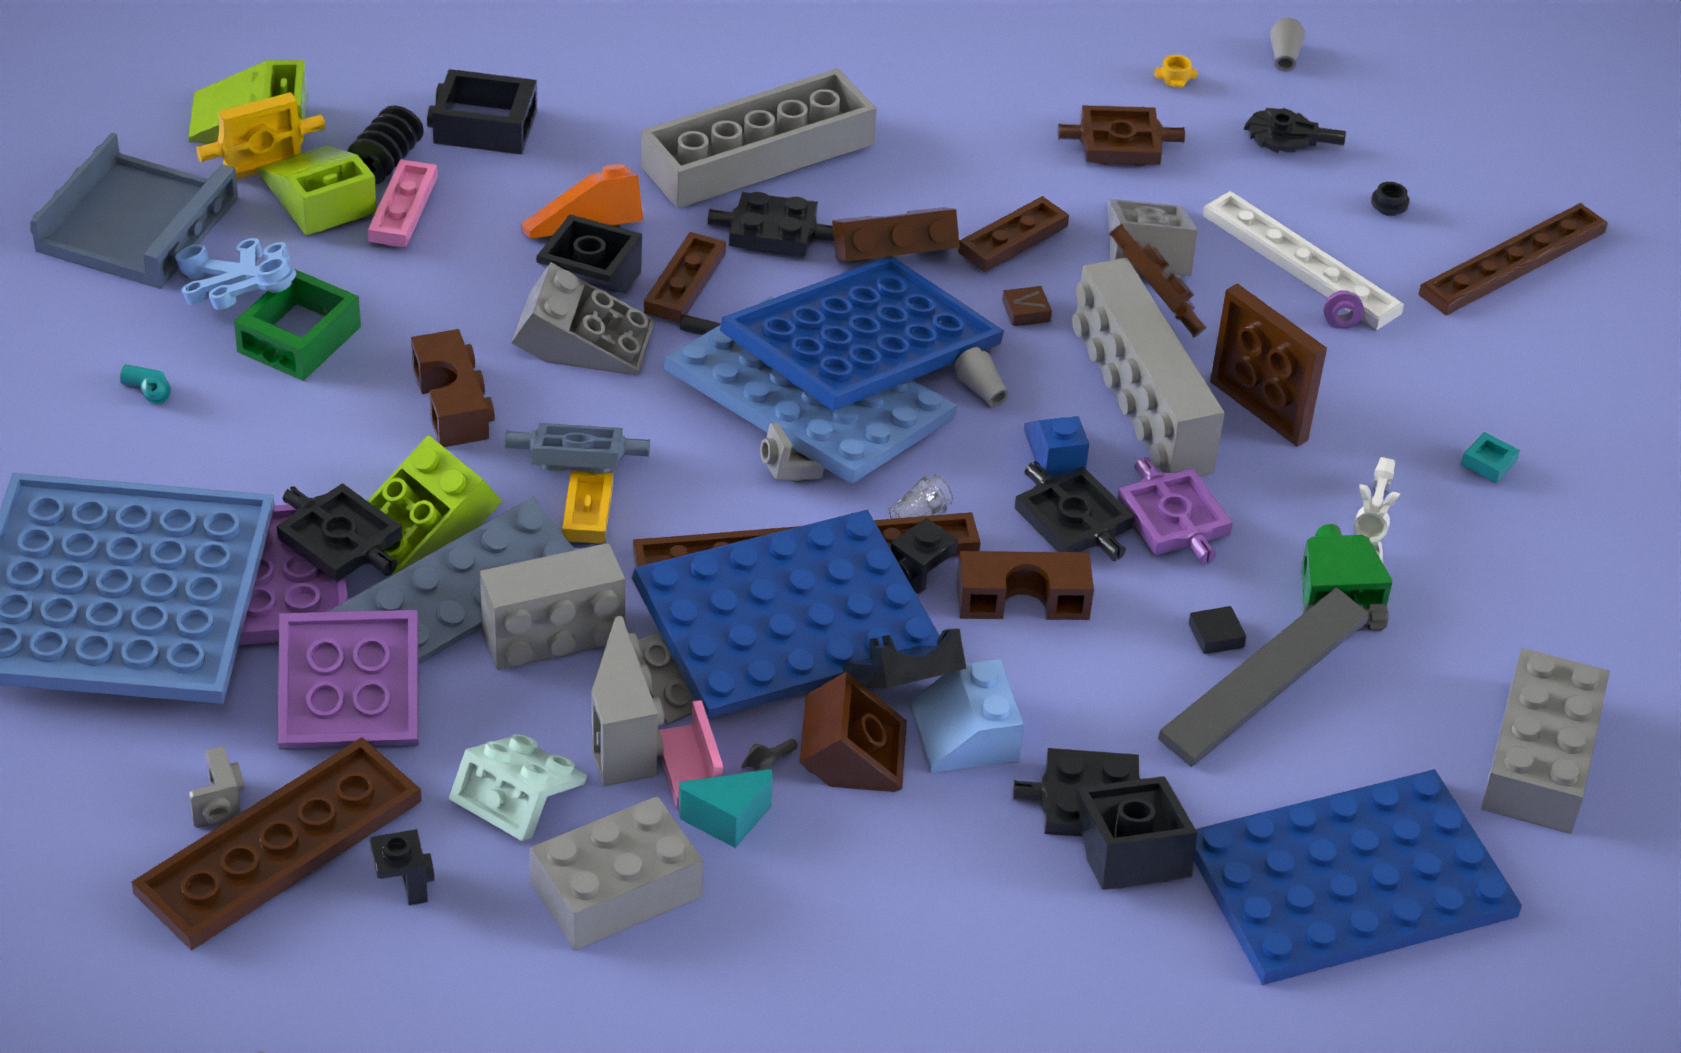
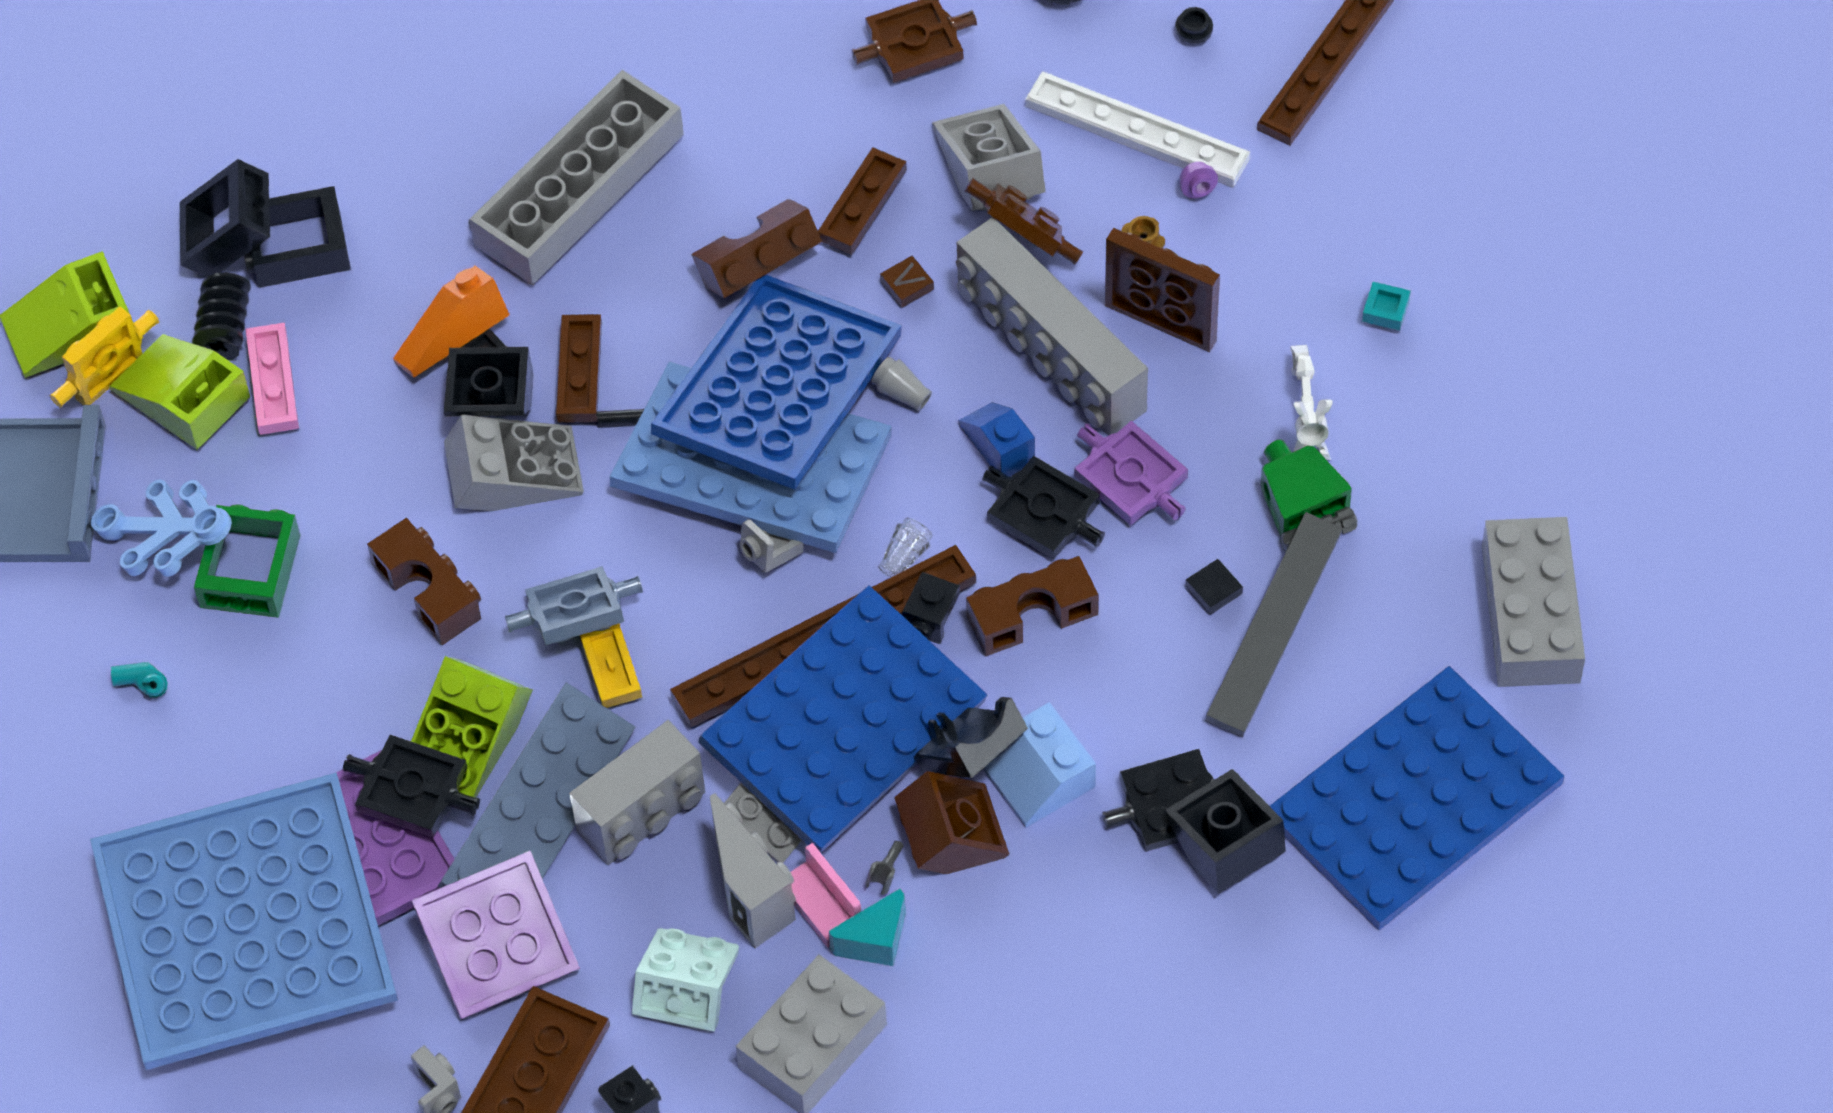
camera: 15 degrees left, 15 degrees up
(427, 69) = (234, 187): none -> black window
(772, 223) = (631, 271): black plate -> none

